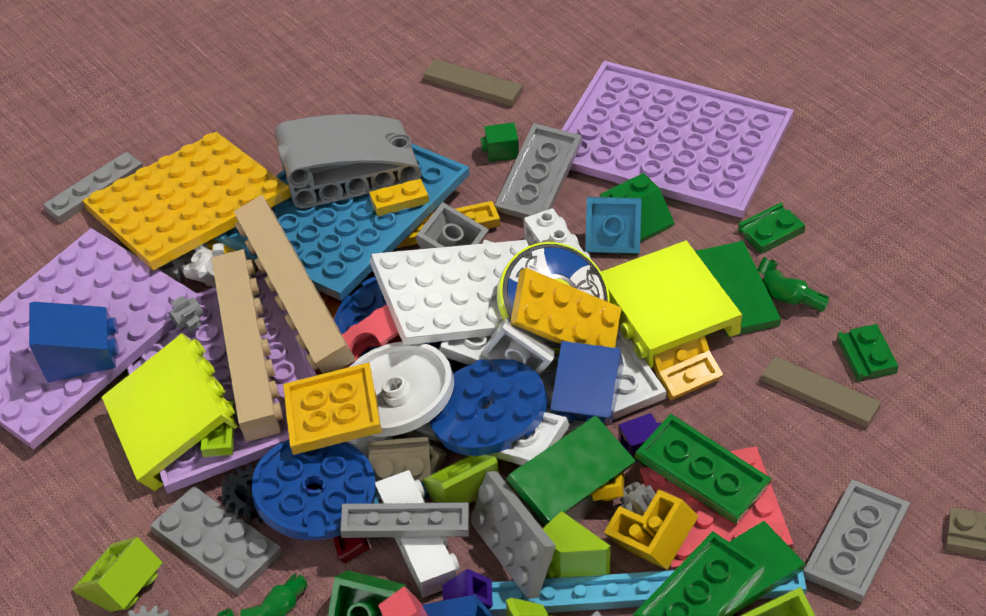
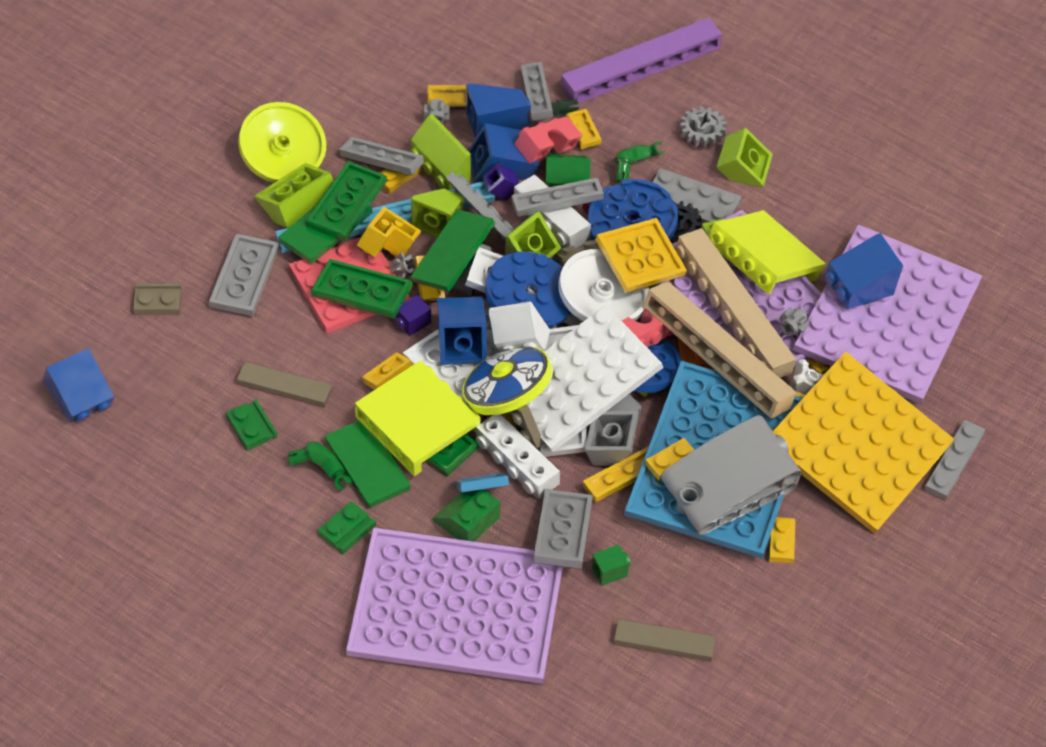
camera: 160 degrees right, 5 degrees up
(563, 312) = (490, 351): yellow plate -> none

